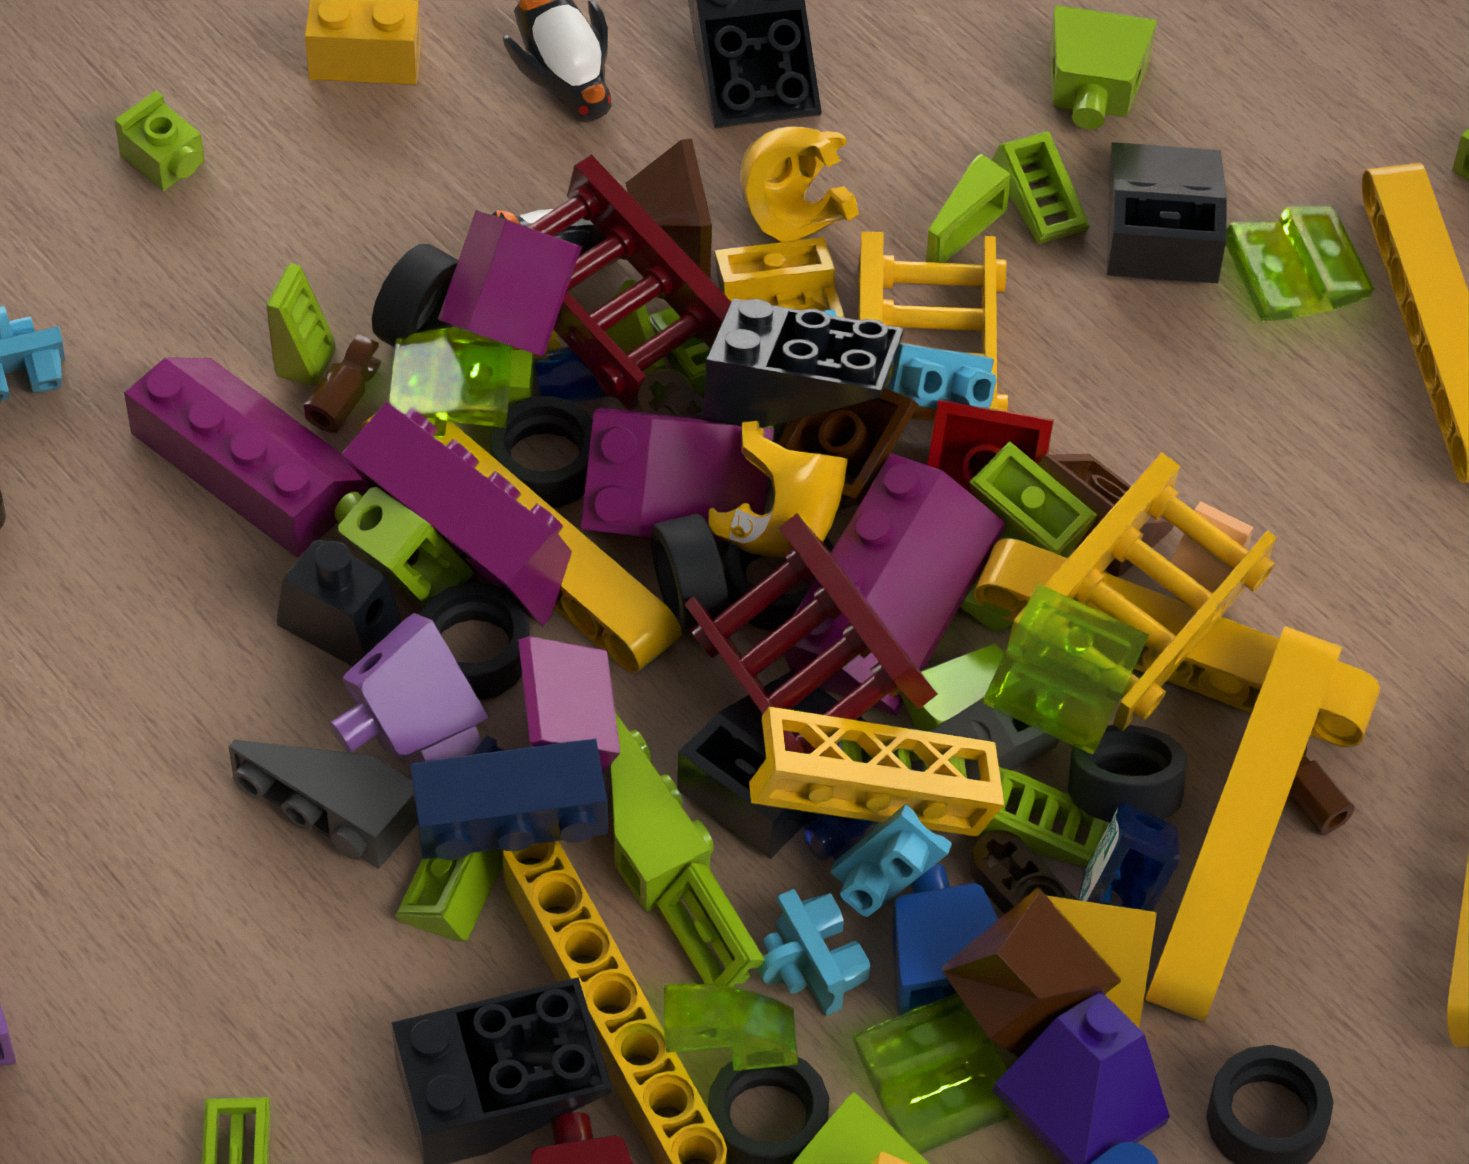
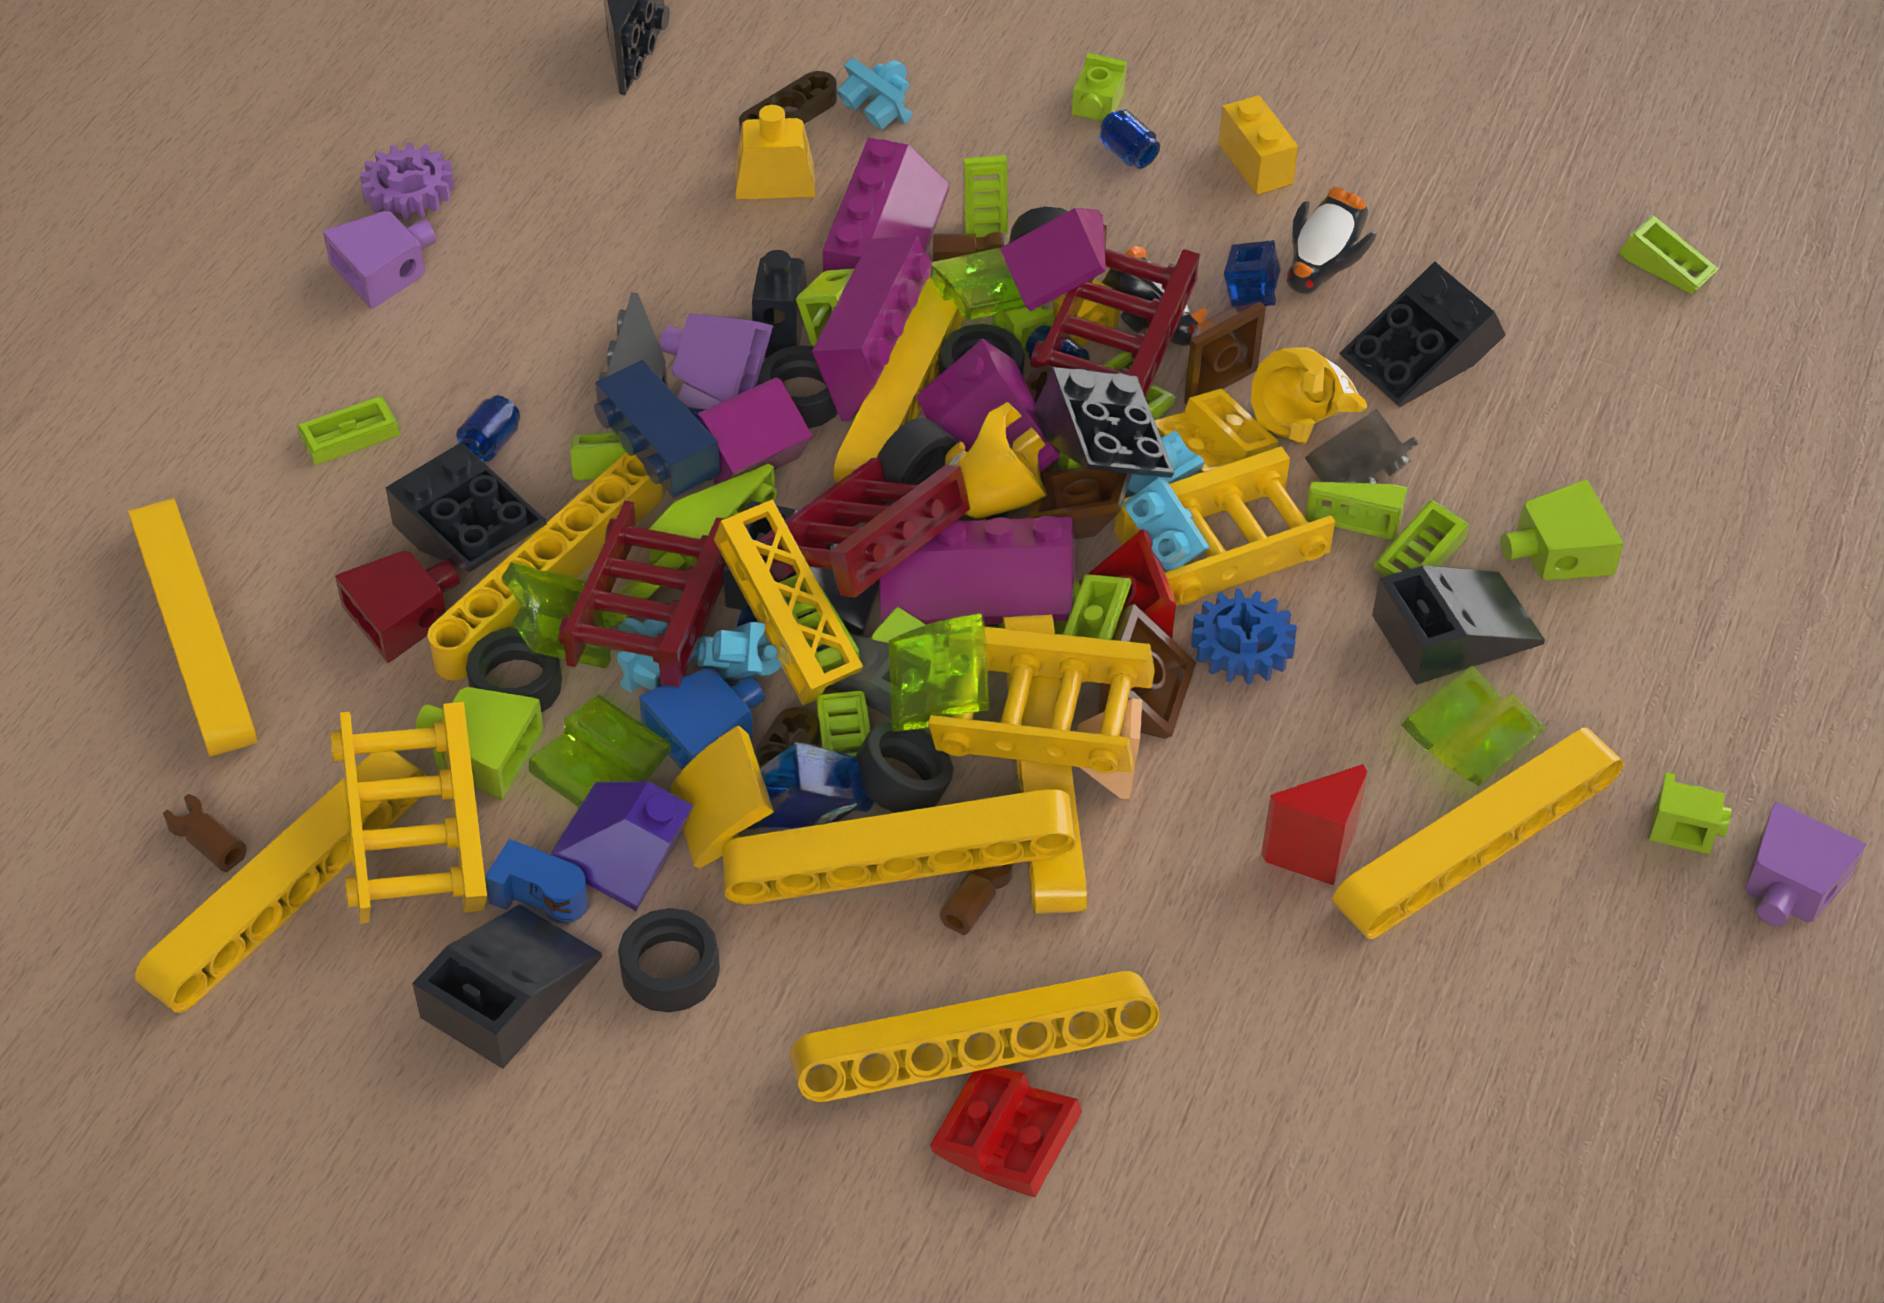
camera: 65 degrees right, 5 degrees down
(73, 511) = (773, 158): none -> yellow torso
(264, 152) = (1129, 138): none -> clear blue brick
(345, 996) = (489, 427): none -> clear blue brick
(563, 135) = (1252, 273): none -> clear blue brick
(776, 853) = (684, 617): none -> dark red fence
(897, 175) = (1361, 452): none -> clear smoke bracket
(1027, 972) = (678, 753): reddish brown slope -> none
(1090, 392) = (1243, 636): none -> blue gear
(1398, 435) = (1314, 824): none -> red slope

